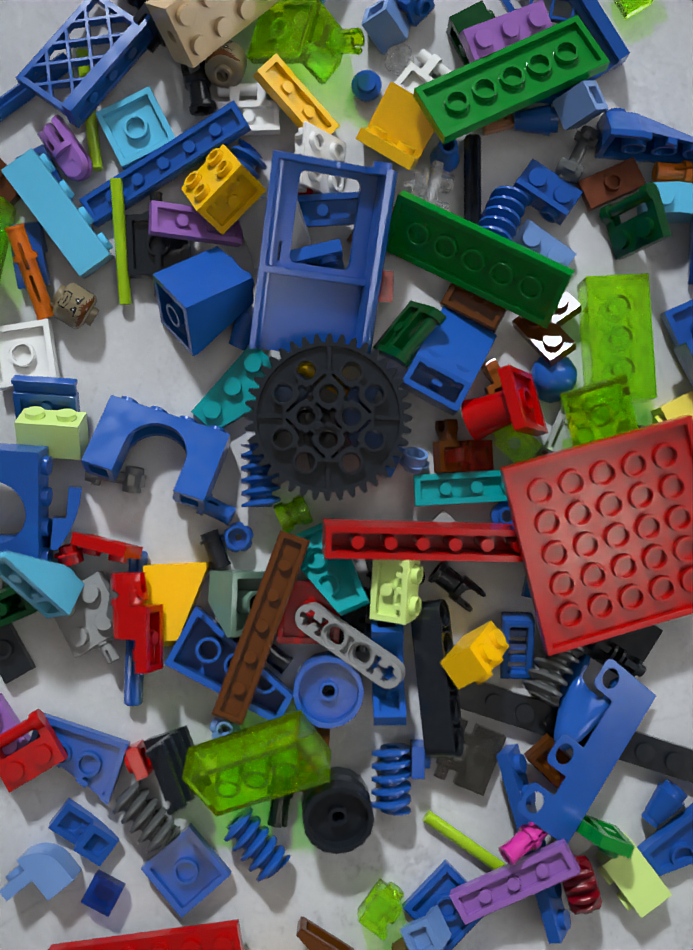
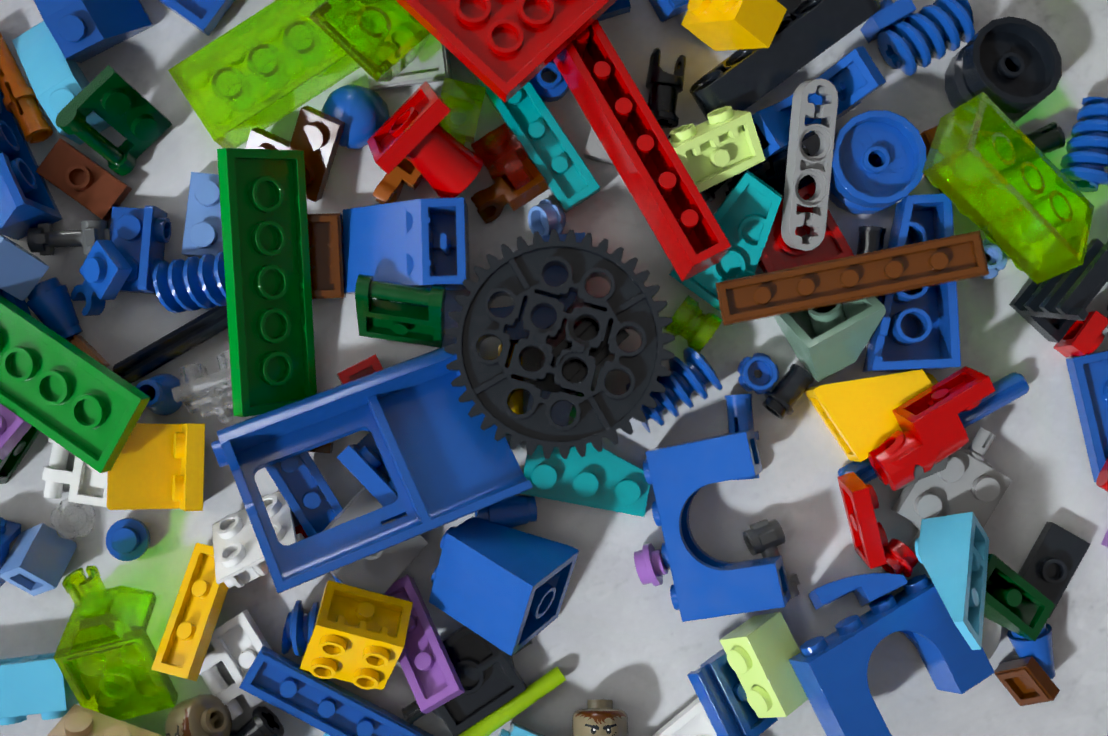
camera: 115 degrees left, 0 degrees up
(158, 396) = (650, 565): none -> medium lavender plate
(540, 161) = (104, 276): none -> blue plate

